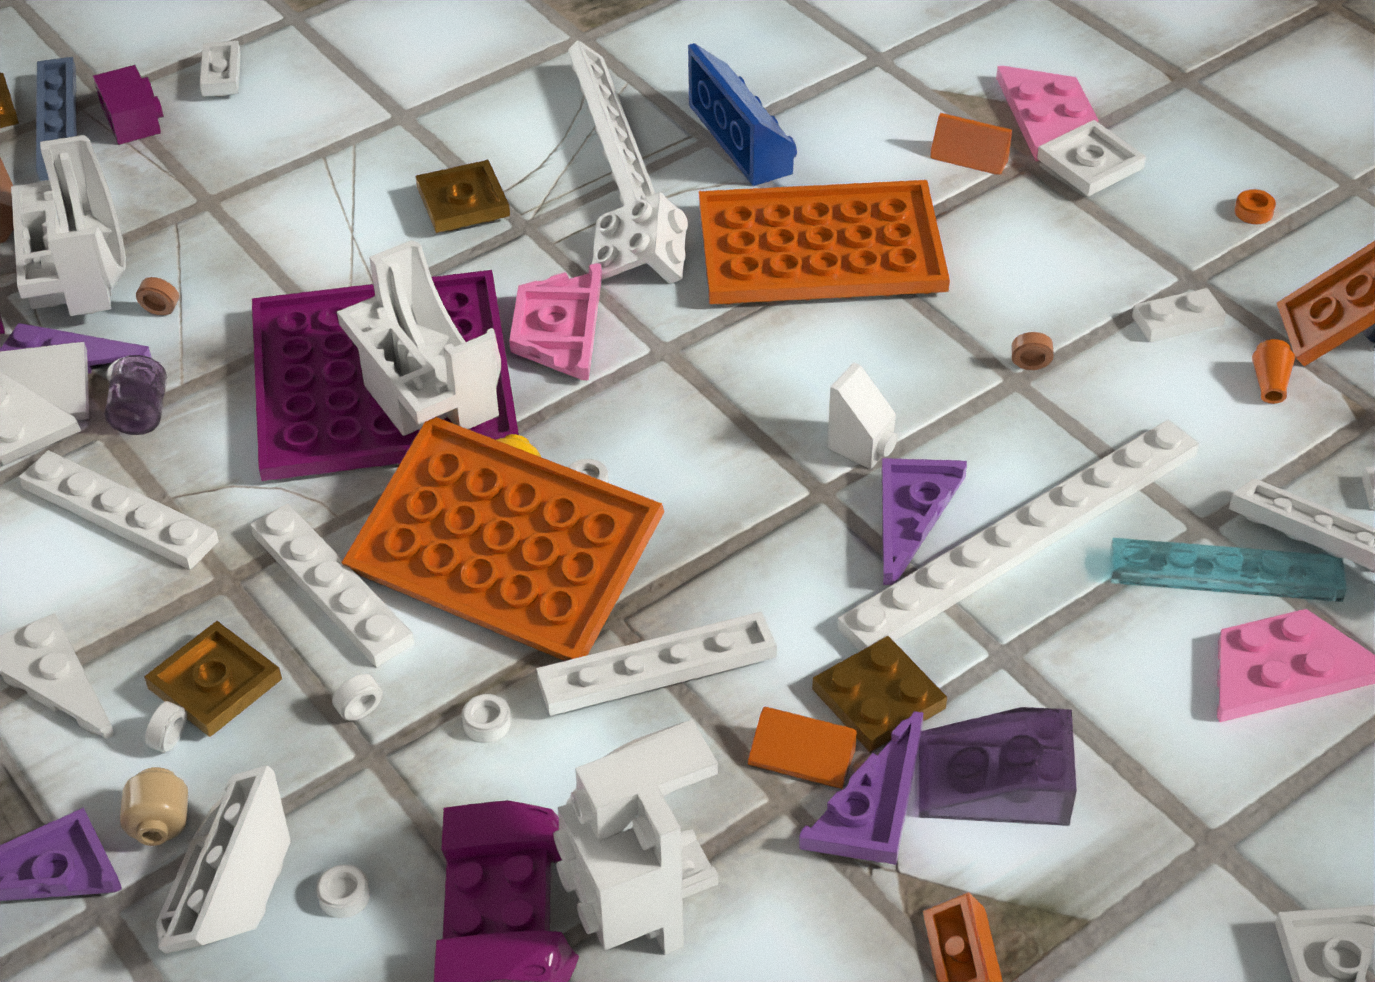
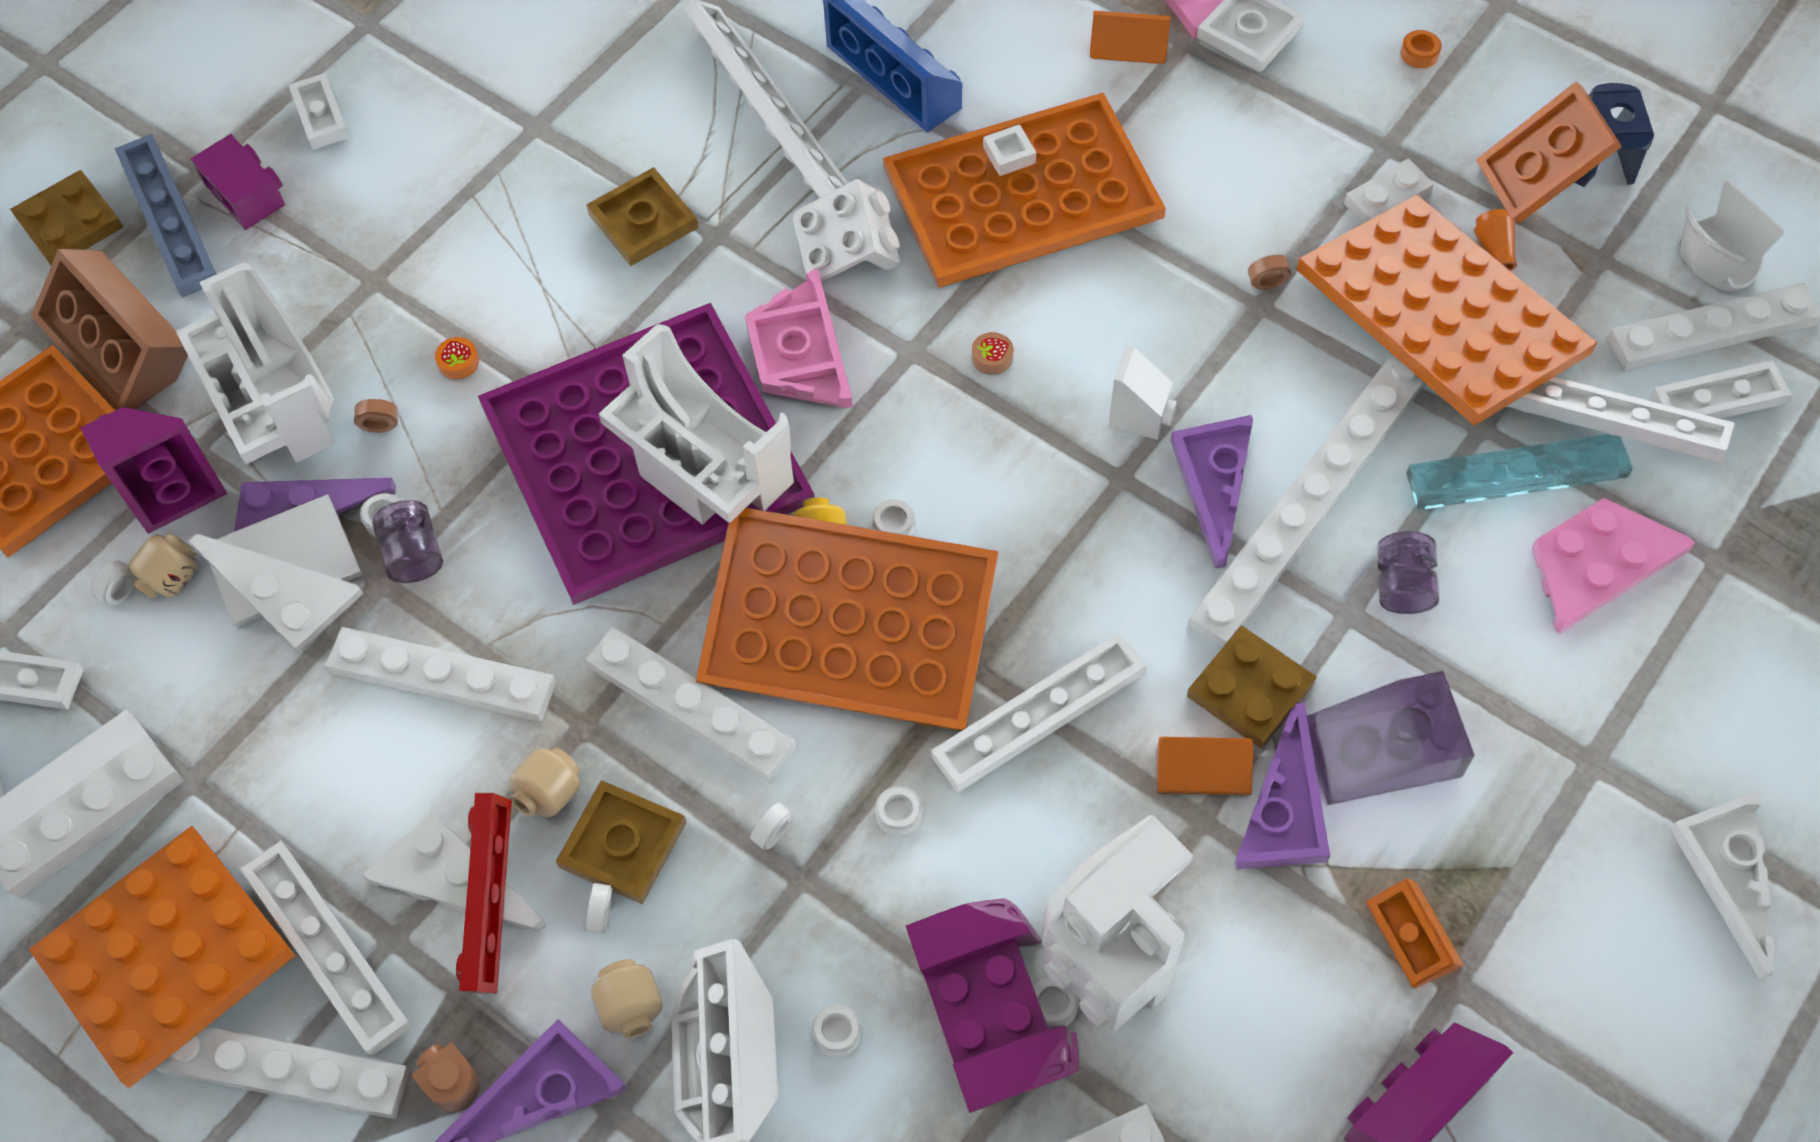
camera: 15 degrees left, 15 degrees up
(64, 683) = (480, 957): none -> red plate
(165, 611) = (544, 783): none -> tan head
(250, 271) = (457, 358): none -> orange tile
(565, 918) = (1057, 1004): none -> white tile
(738, 365) = (992, 353): none -> nougat tile
(816, 203) = (1009, 150): none -> white plate
(1073, 625) = (1406, 572): none -> clear purple wheel
(1198, 414) = (1446, 308): none -> orange plate

